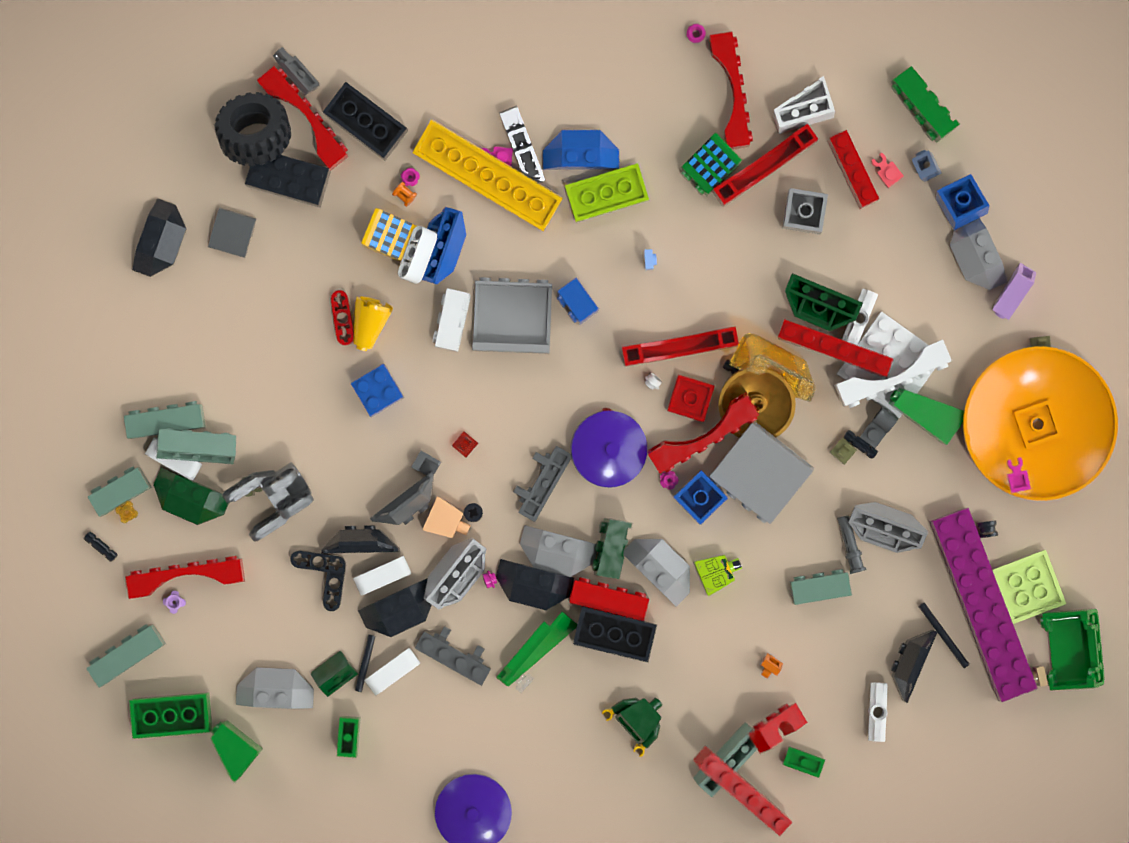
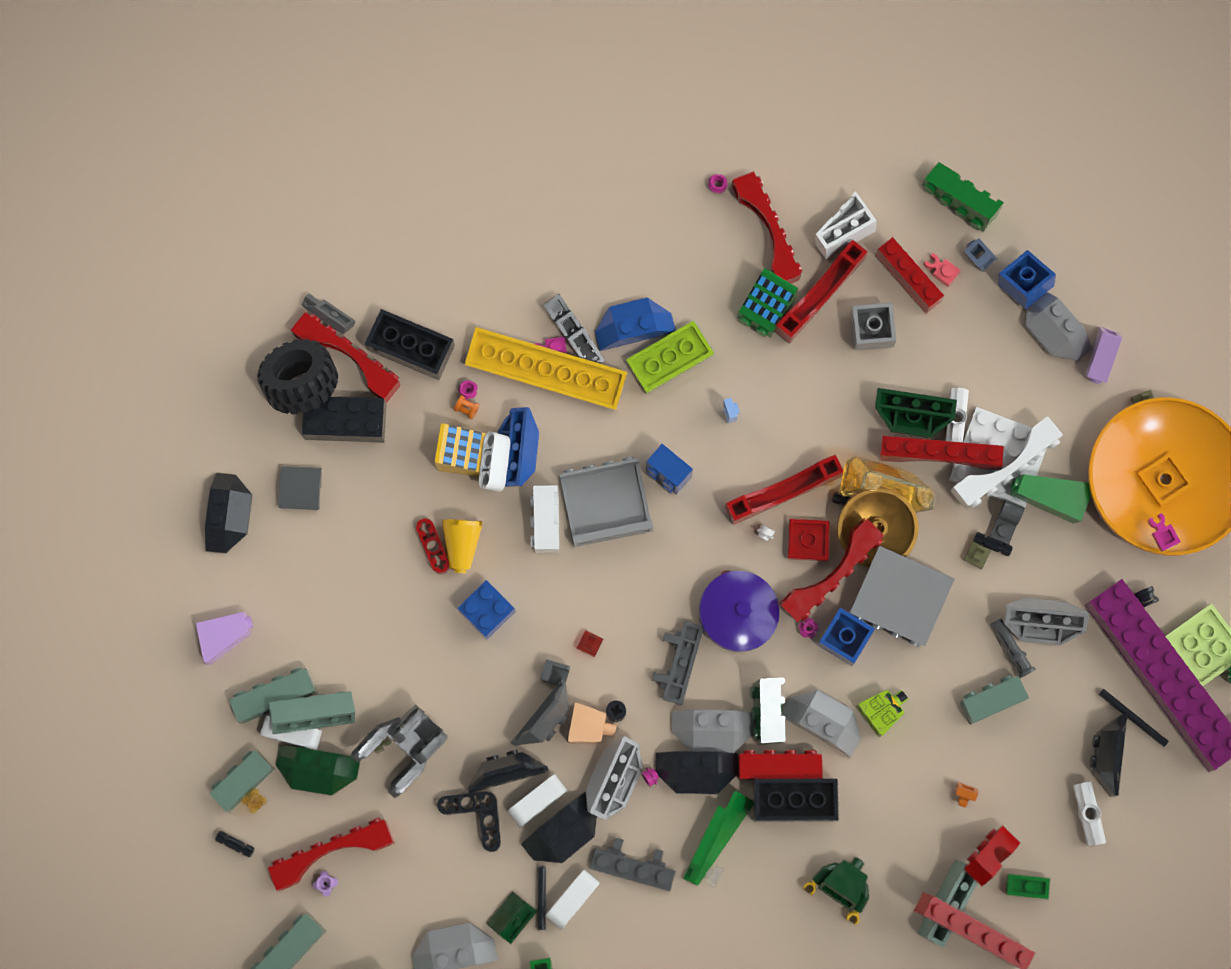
camera: 15 degrees left, 10 degrees down
(130, 353) = (222, 634): none -> lavender slope

